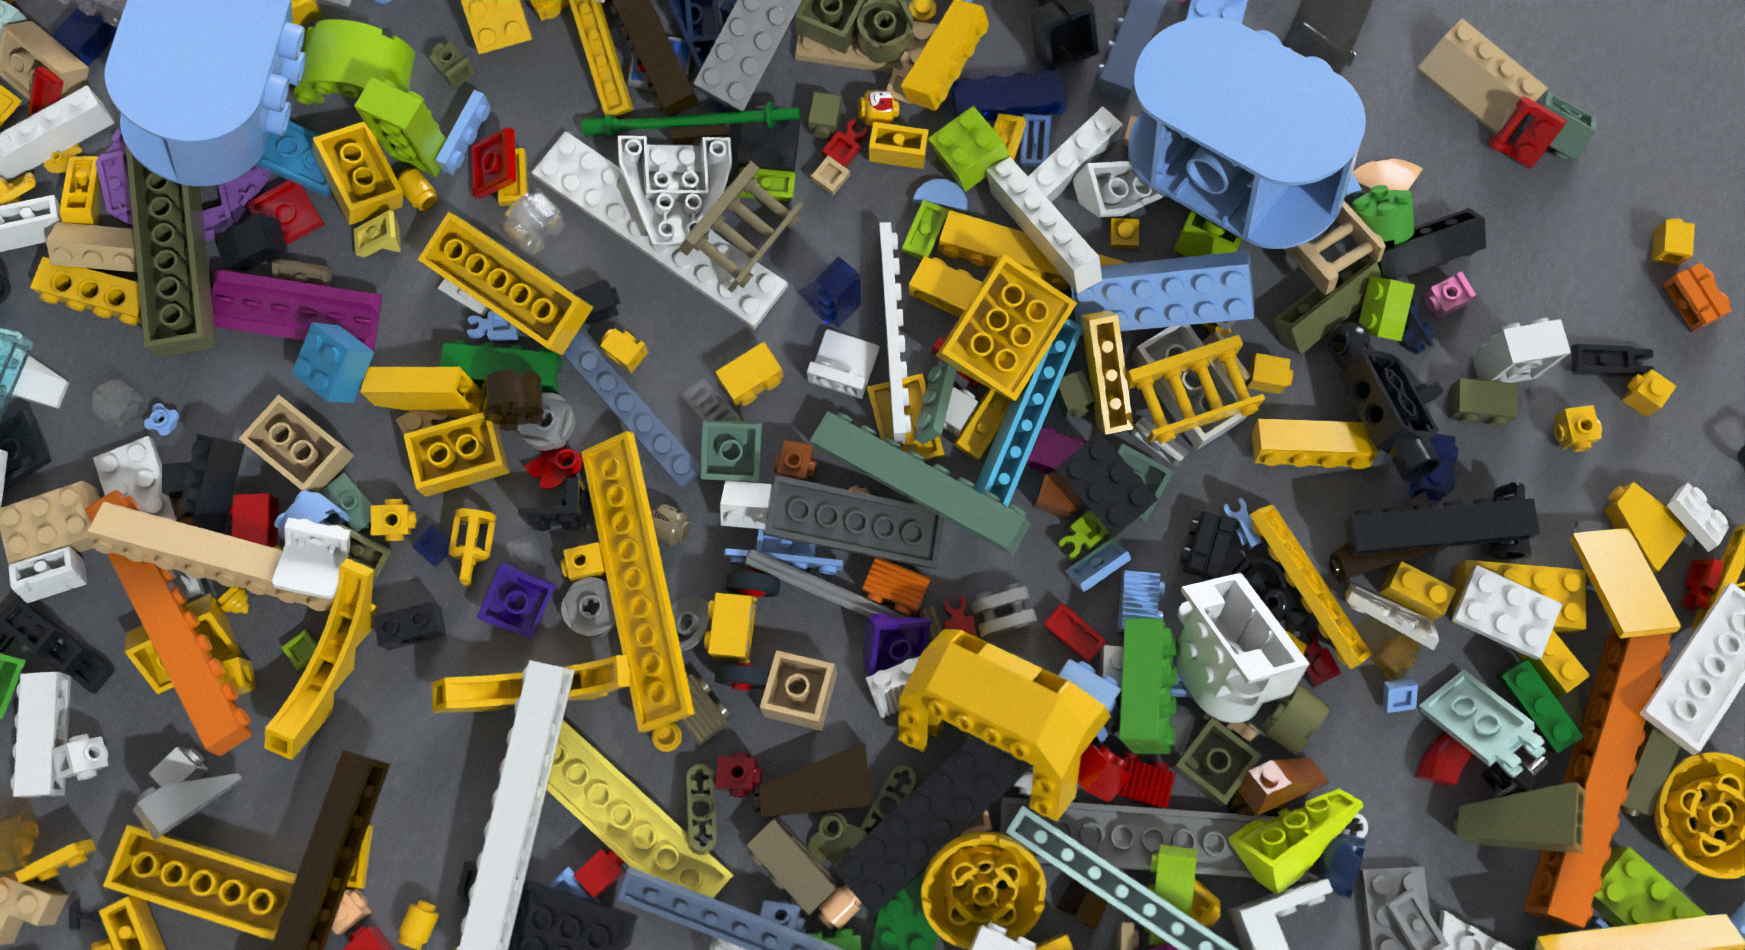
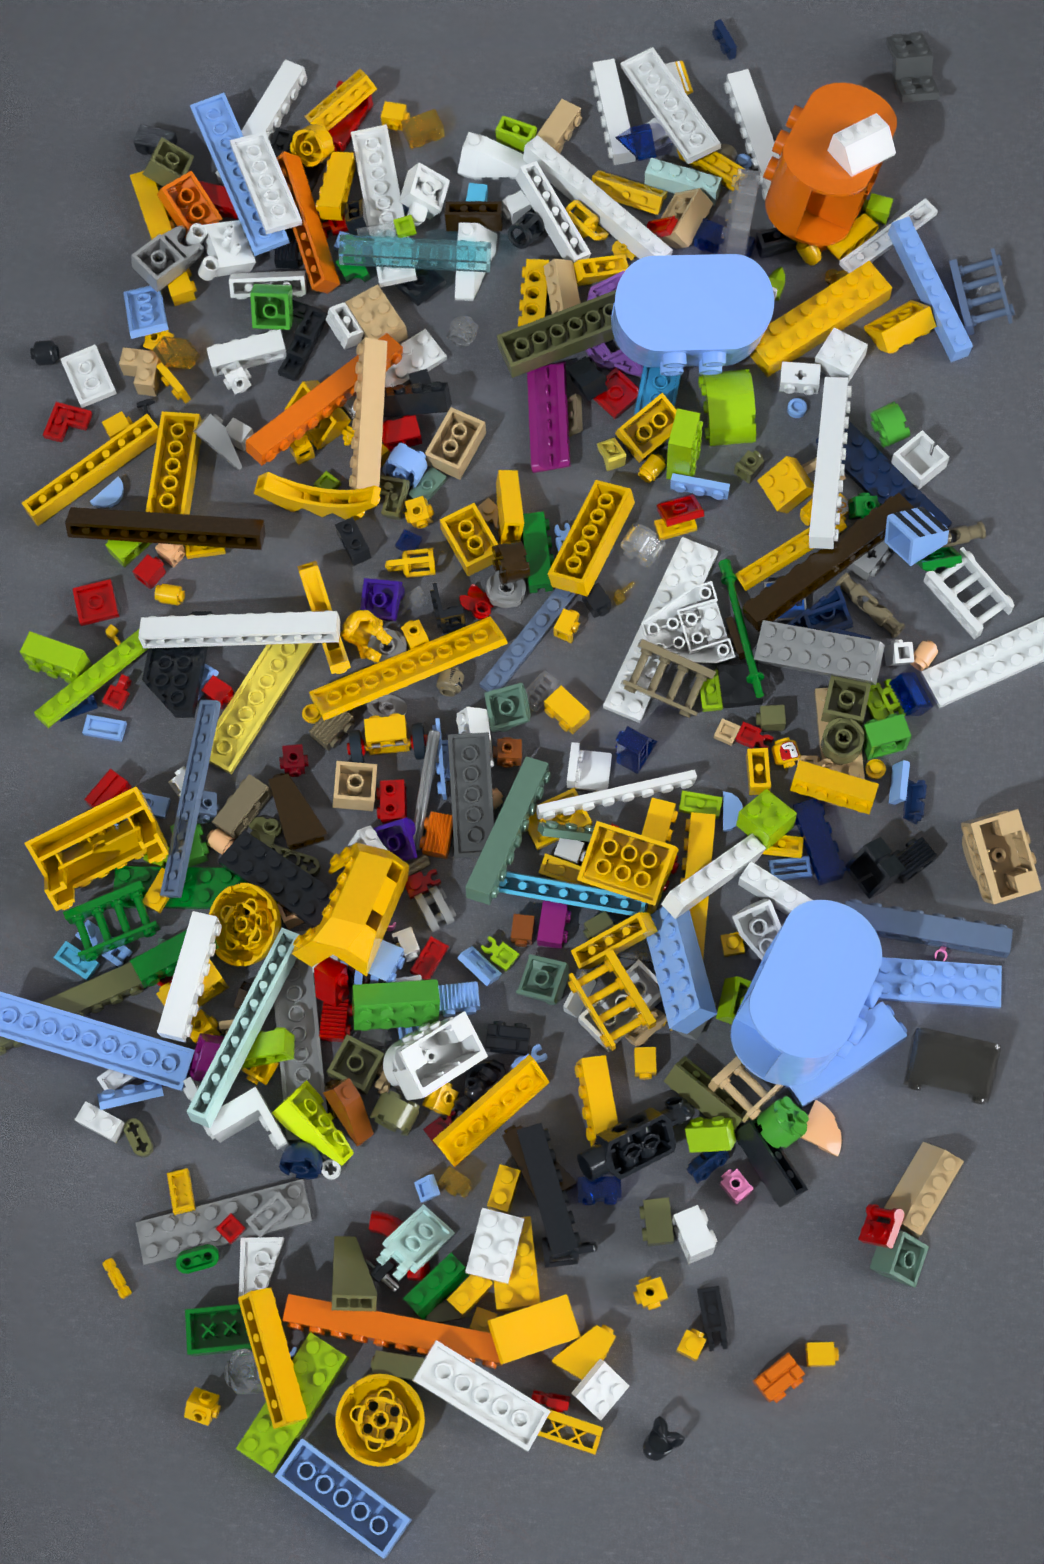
camera: 85 degrees right, 5 degrees down
(167, 425) = (461, 365): light blue plate -> none
(311, 558) = (377, 468): white bracket -> none
(332, 363) = (514, 448): dark azure brick -> none
(558, 644) = (358, 630): none -> yellow hair
(597, 272) = (619, 596): none -> clear yellow hand
(709, 830) = (252, 741): olive beam -> none
(833, 641) = (392, 800): none -> red brick
(1050, 656) = (408, 942): none -> white brick
(1103, 487) = (529, 952): black brick -> none
(1395, 615) = (482, 1174): white wing -> none
(1429, 393) = (653, 1176): black plate -> none
(1587, 652) = (480, 1320): none -> yellow plate

